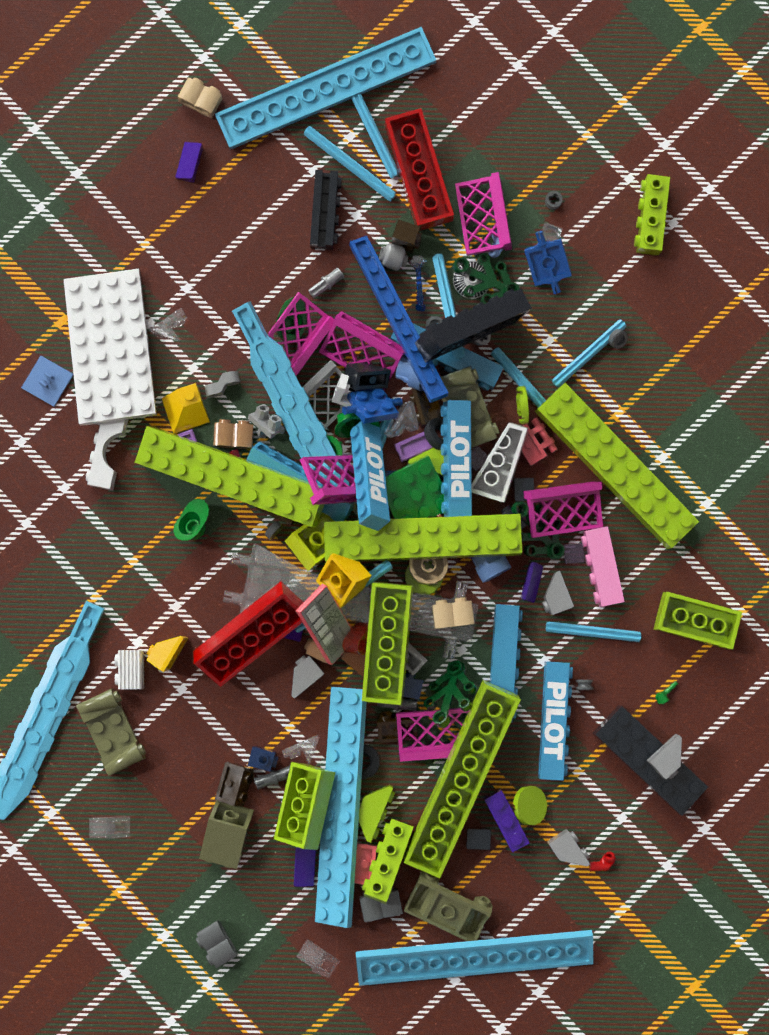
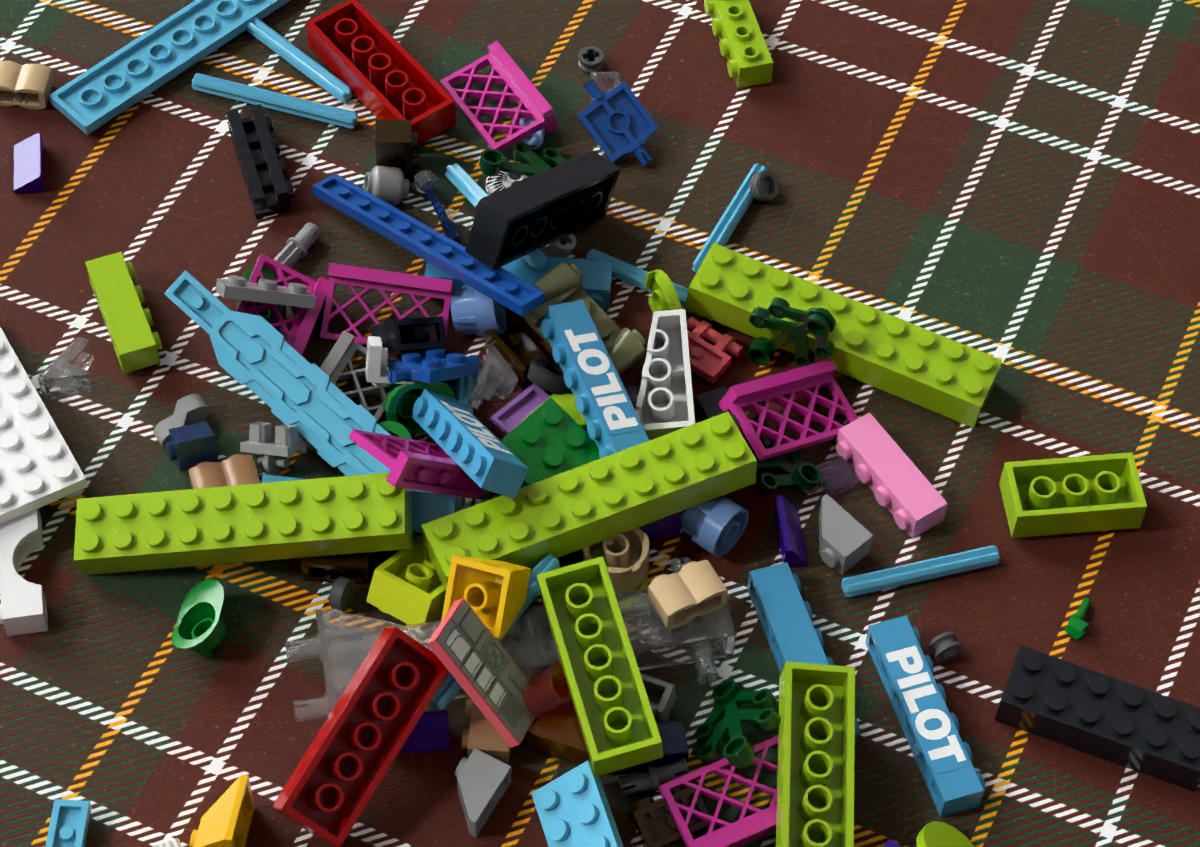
camera: 20 degrees left, 30 degrees down
(185, 408) = (132, 465): yellow slope -> none
(211, 296) = (123, 313): none -> lime brick
(221, 406) = (191, 445): none -> brick
(292, 325) = (265, 292): none -> light grey plate
(577, 455) = (814, 321): none -> dark green plant
(667, 758) = (1133, 684): light grey slope -> none

